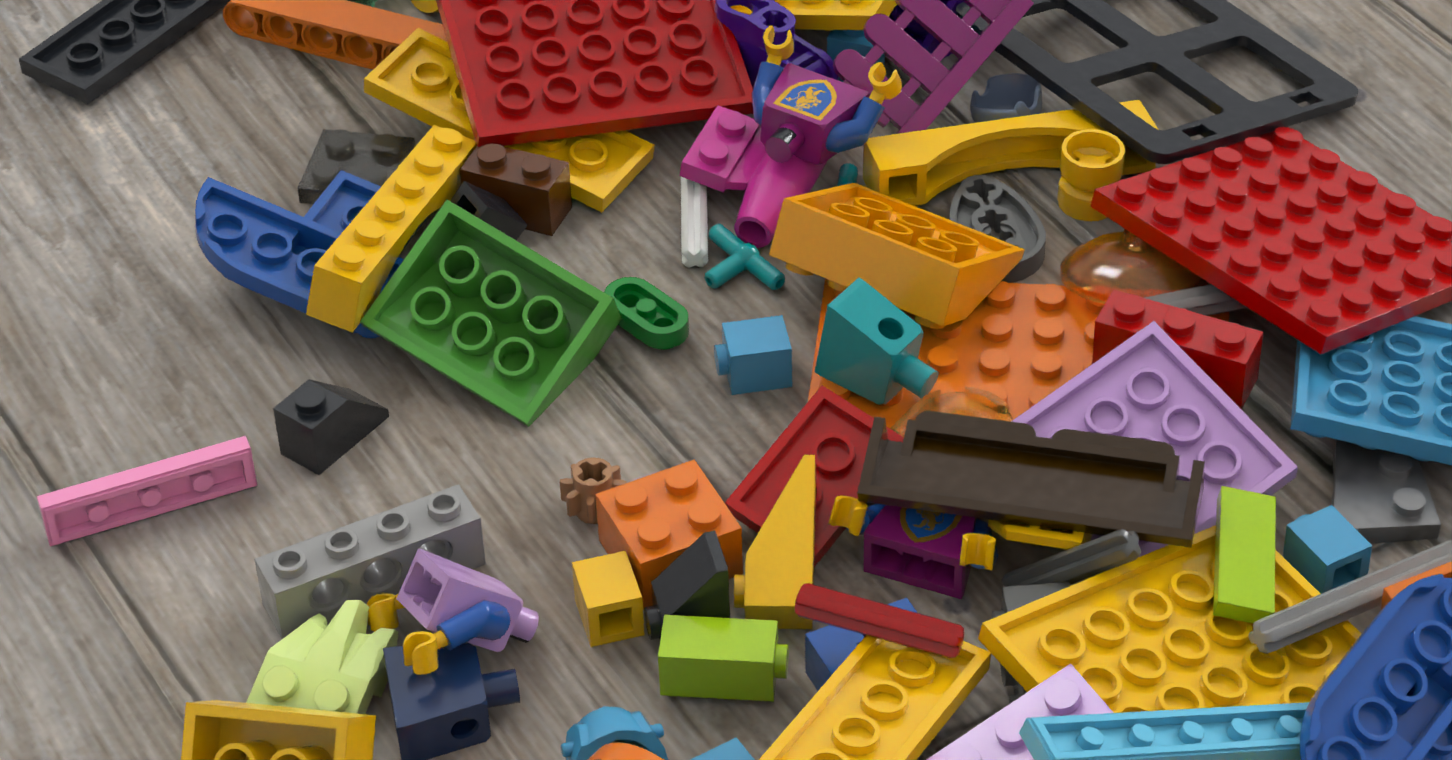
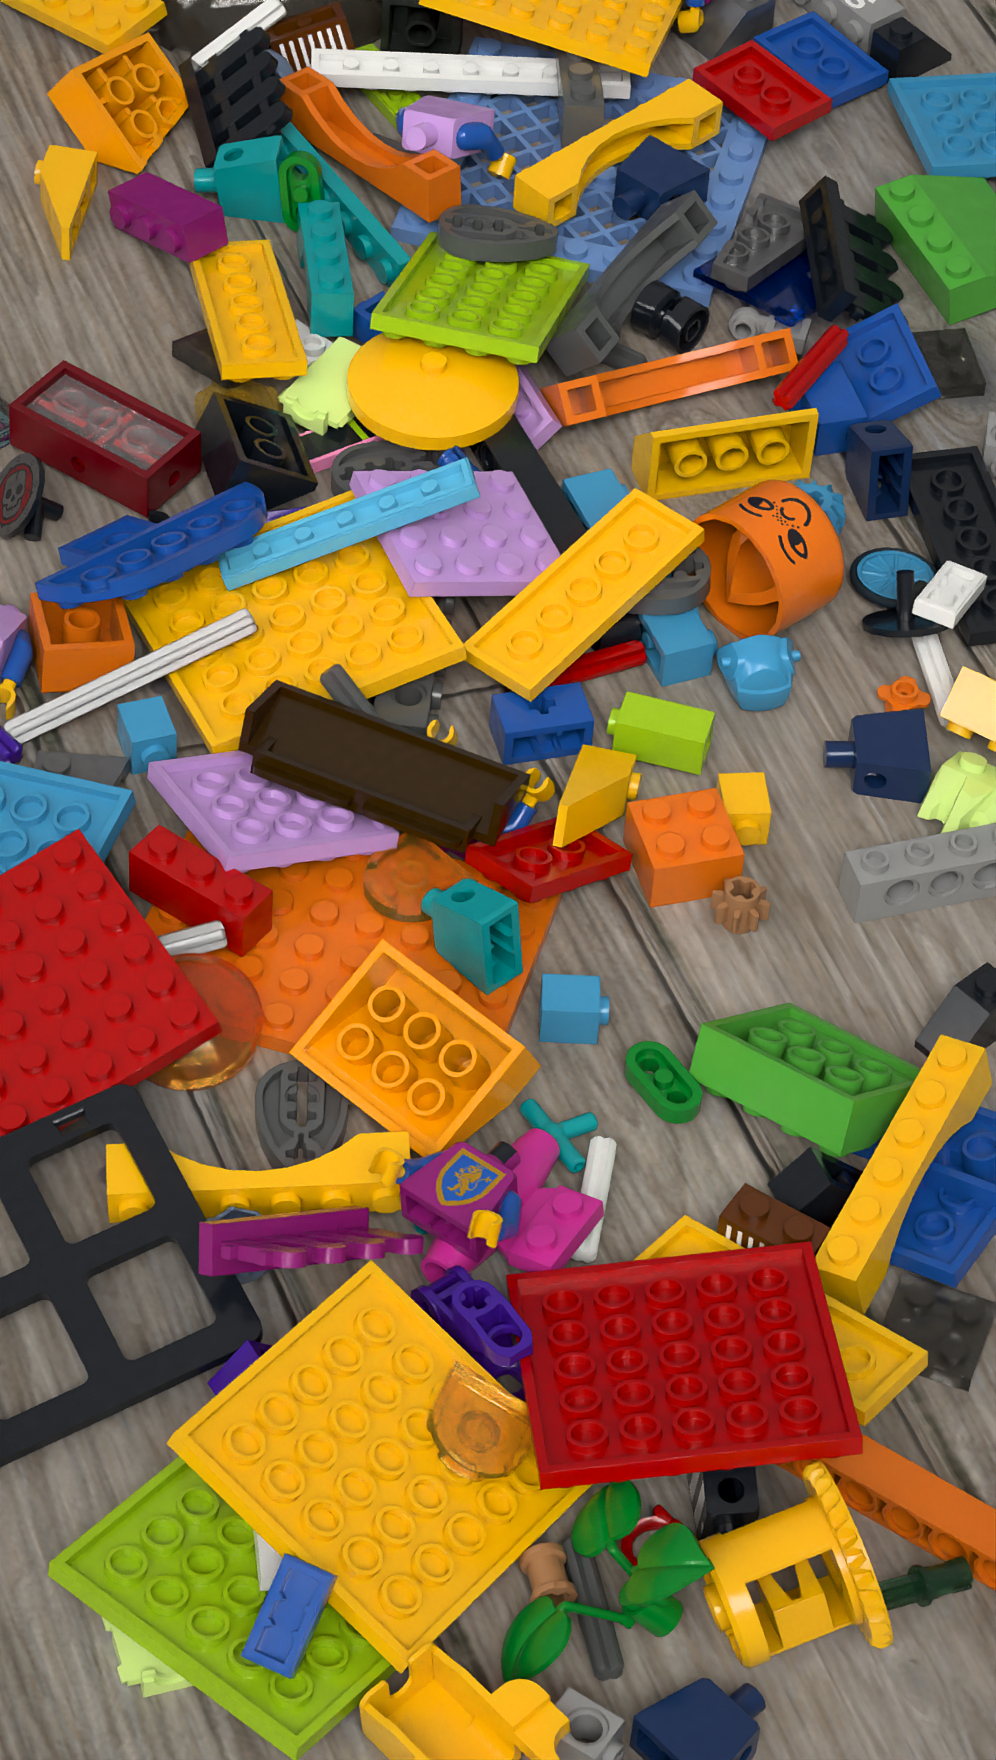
camera: 175 degrees left, 5 degrees up
(456, 606) = (867, 788): torso -> none
(691, 585) = (675, 763): black slope -> none
(879, 620) = (544, 661): red axle -> none
(1086, 163) = (191, 1124): yellow wheel -> none
(1244, 555) = (227, 697): lime tile -> none

